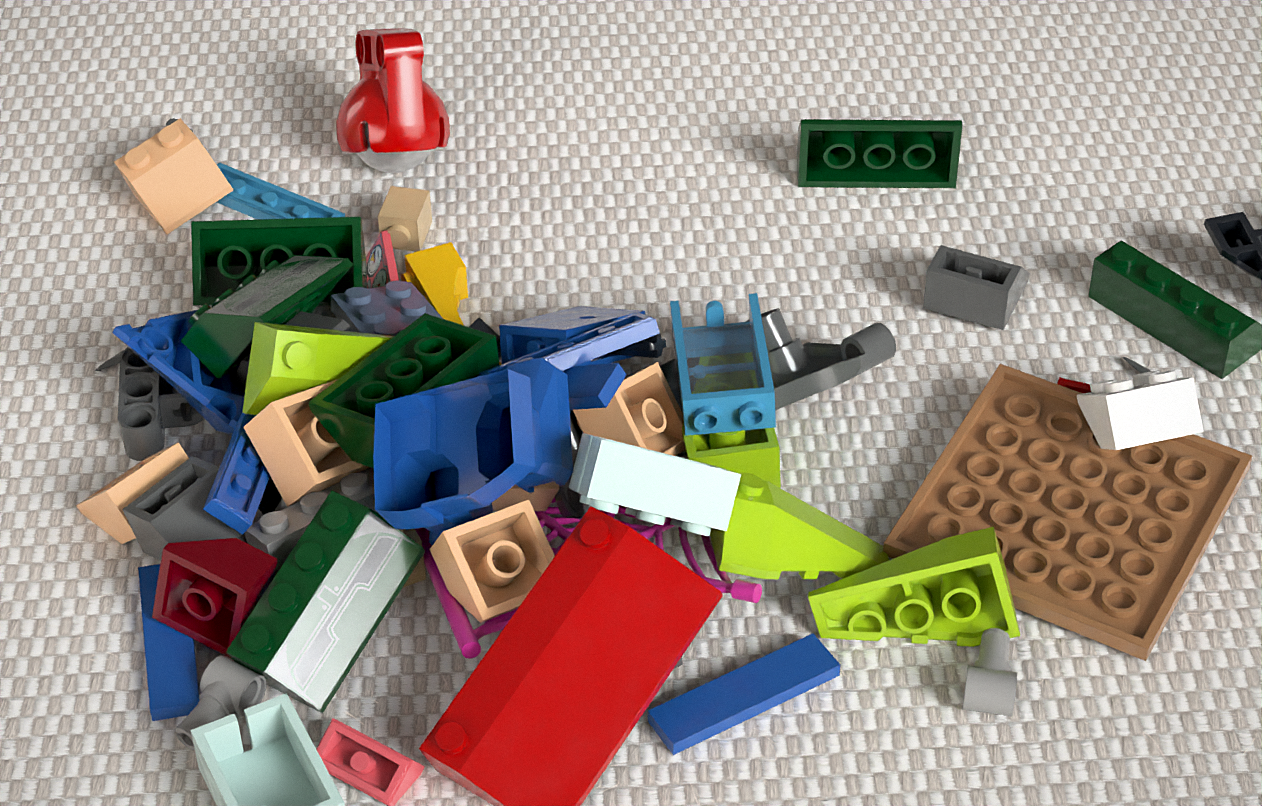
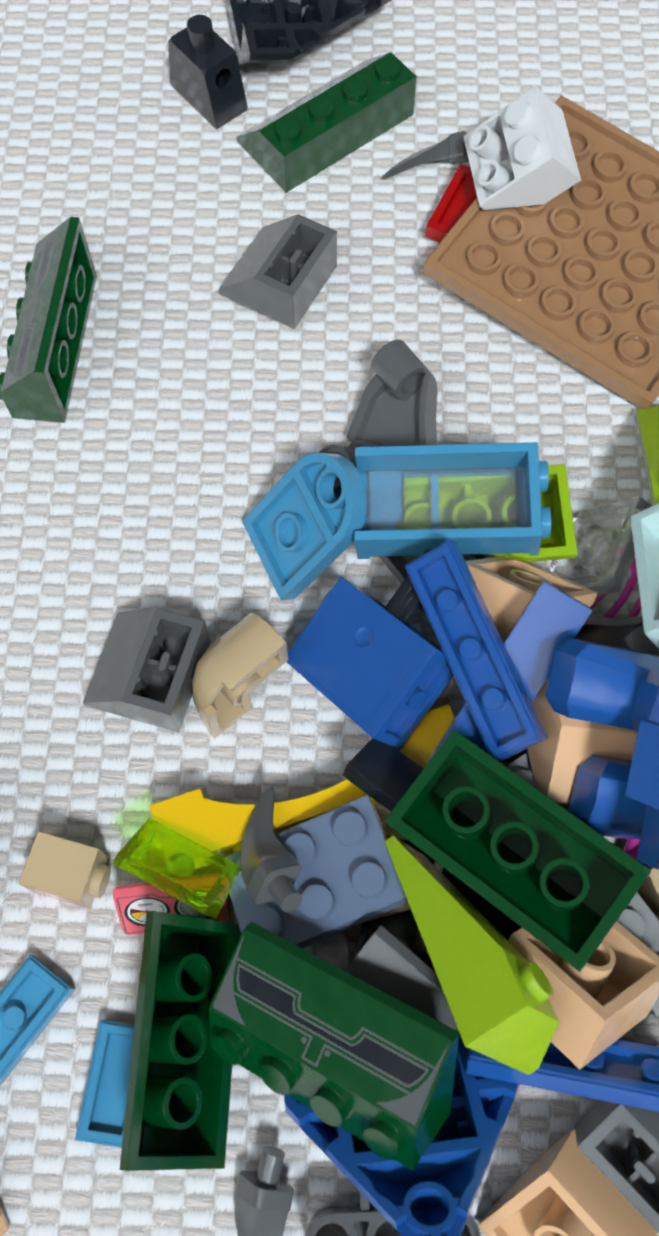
camera: 85 degrees left, 25 degrees up
(390, 283) = (264, 862): none -> dark grey bar
(397, 248) = (179, 867): none -> clear neon green slope
(560, 277) = (233, 669): none -> tan brick
(565, 245) = (149, 667): none -> dark grey slope
(695, 300) = (303, 525): none -> dark azure tile
(1187, 205) = (206, 72): none -> black torso

